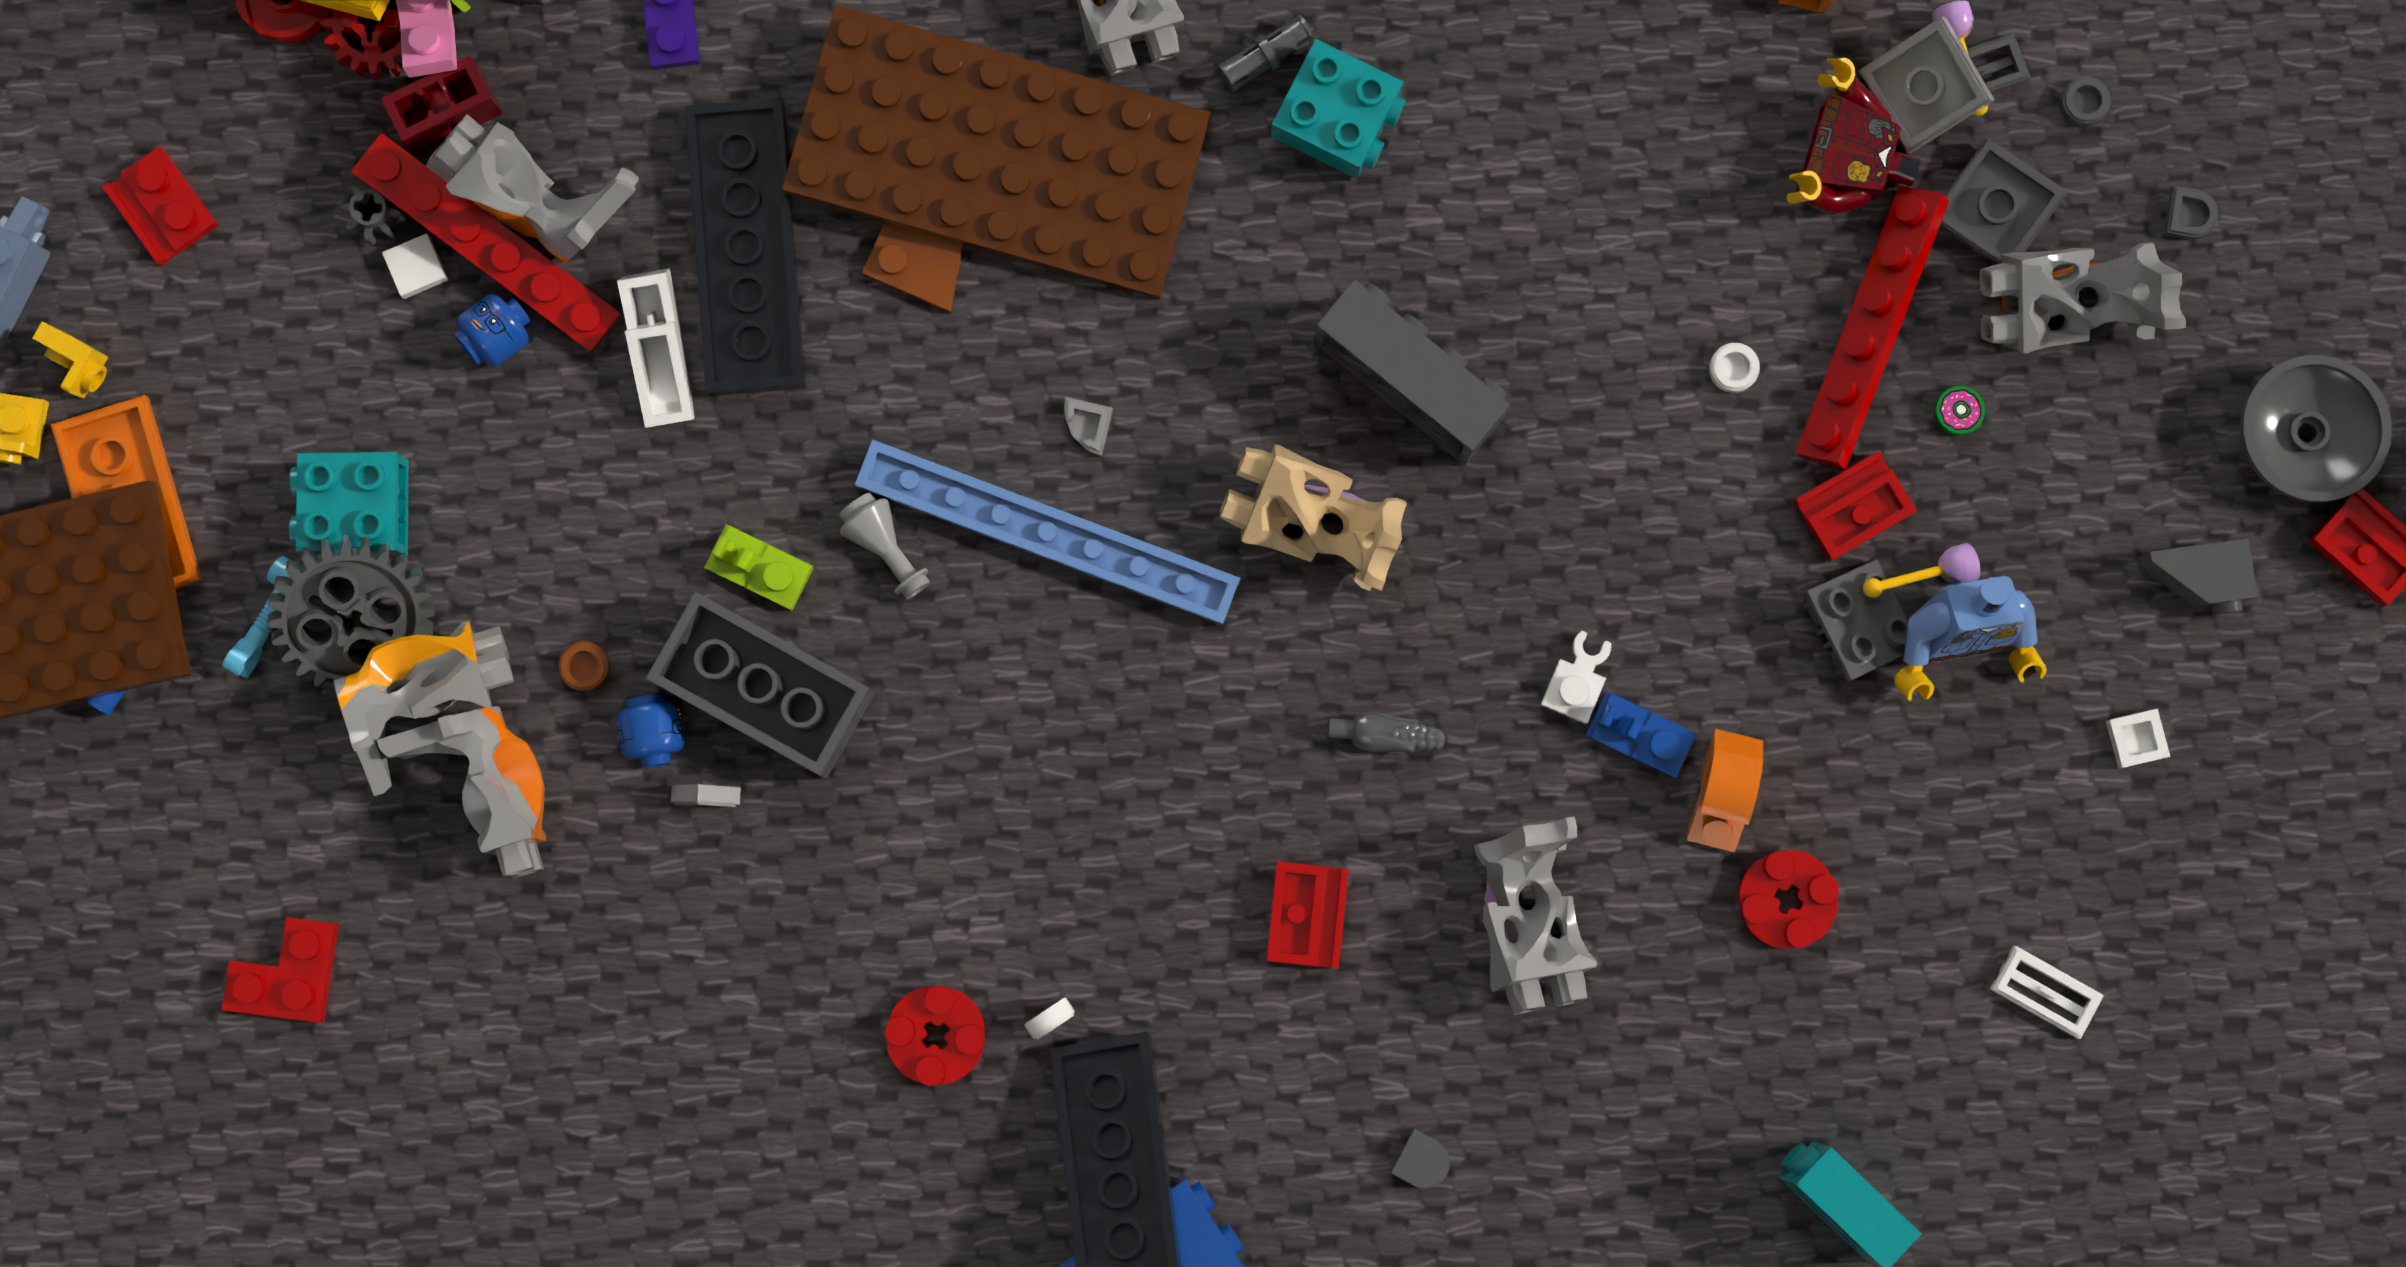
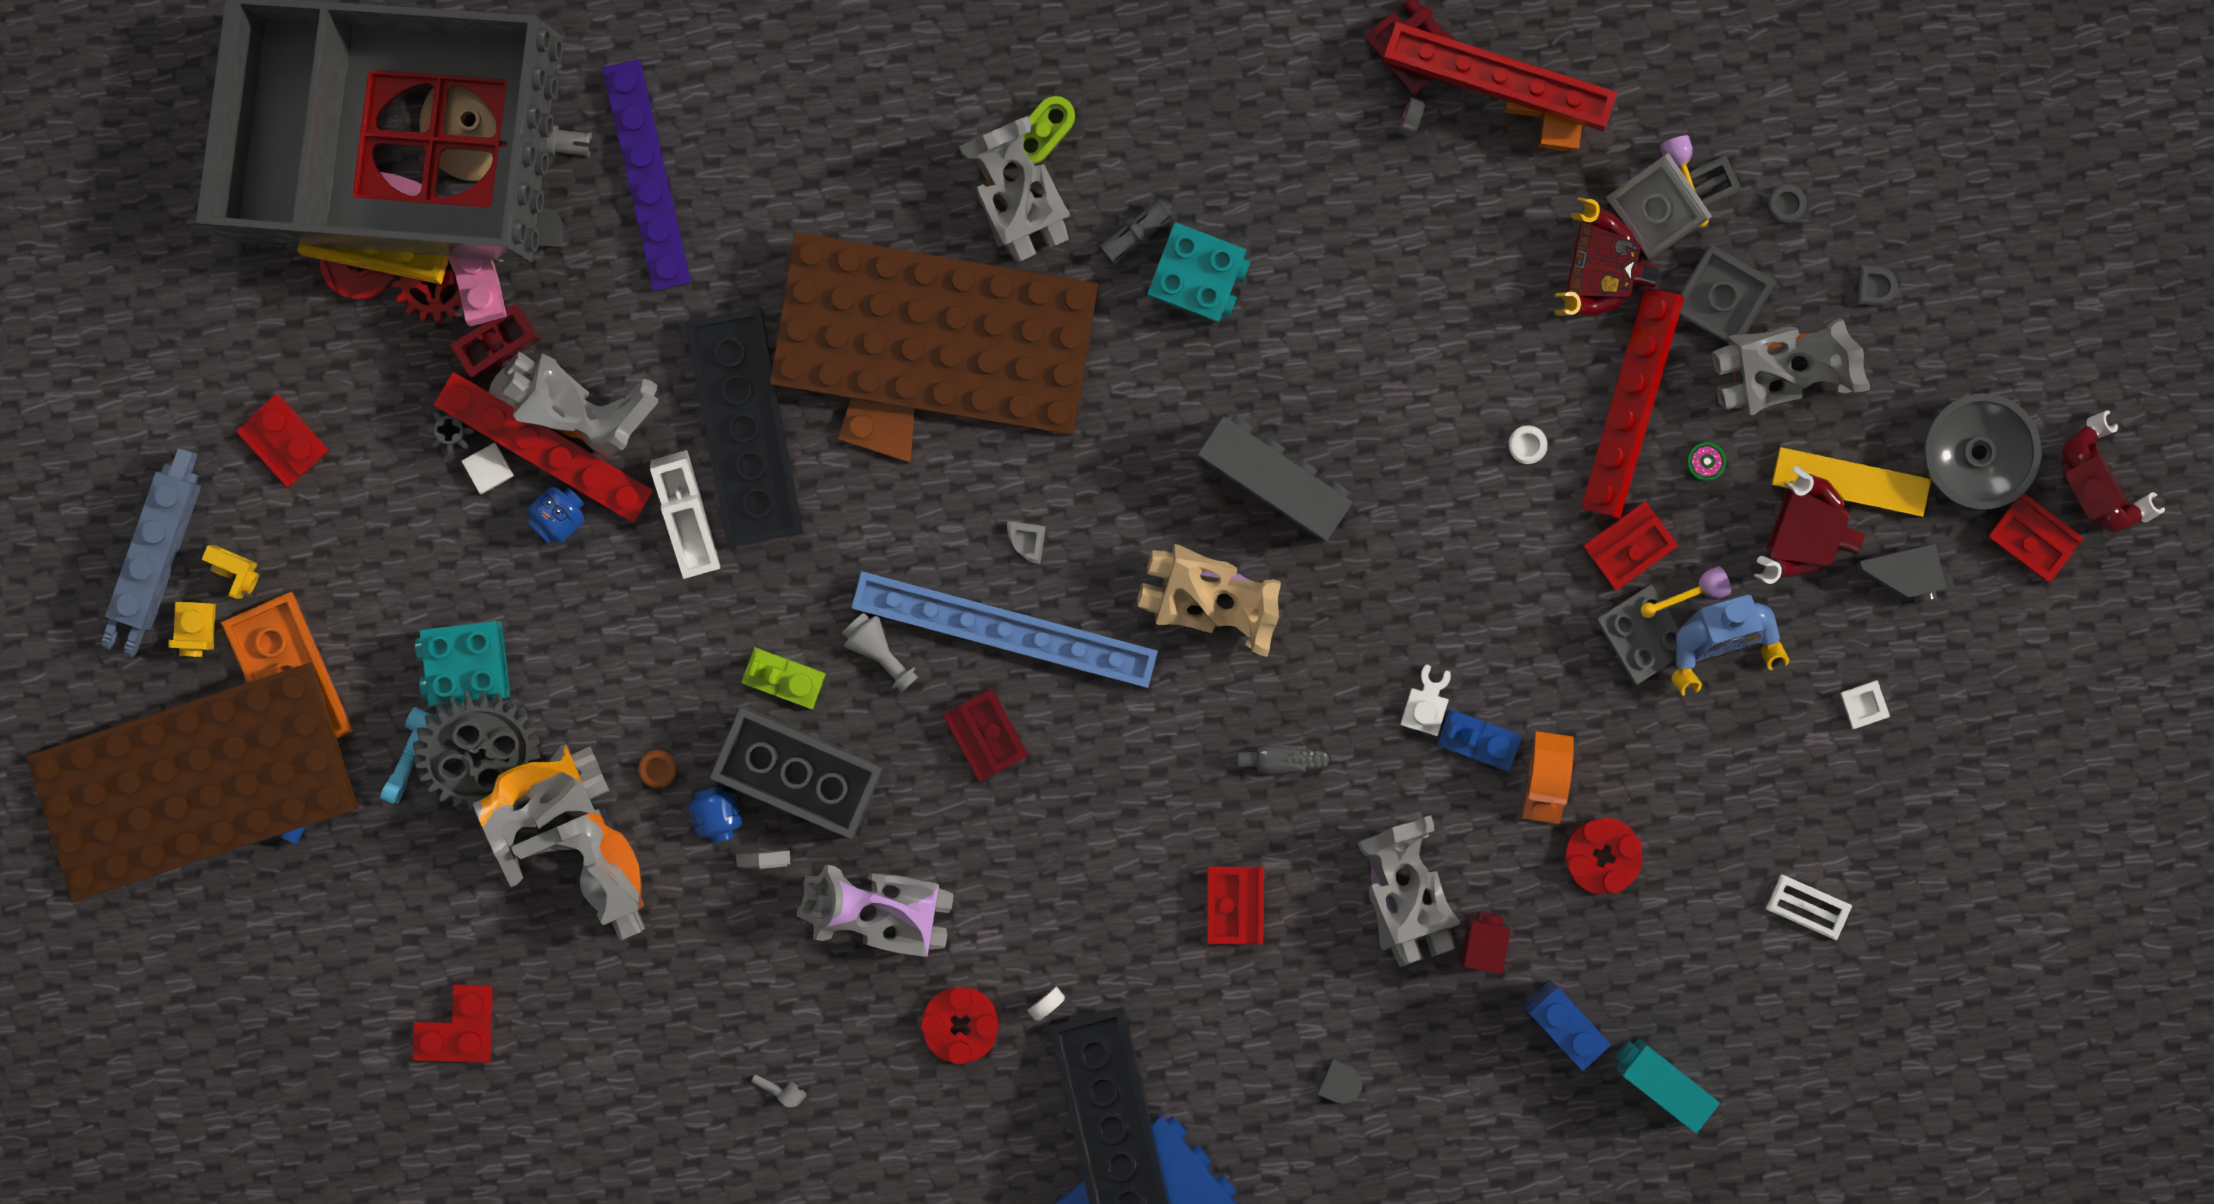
camera: 10 degrees left, 5 degrees up
(703, 1107) = (790, 1096): none -> light grey hand
(791, 857) = (908, 912): none -> light grey hips
(1009, 664) = (986, 735): none -> dark red plate
(1628, 993) = (1485, 942): none -> dark red brick
(1725, 1112) = (1566, 1025): none -> blue brick
(2086, 504) = (1808, 529): none -> dark red torso
(2141, 455) = (1857, 482): none -> yellow tile

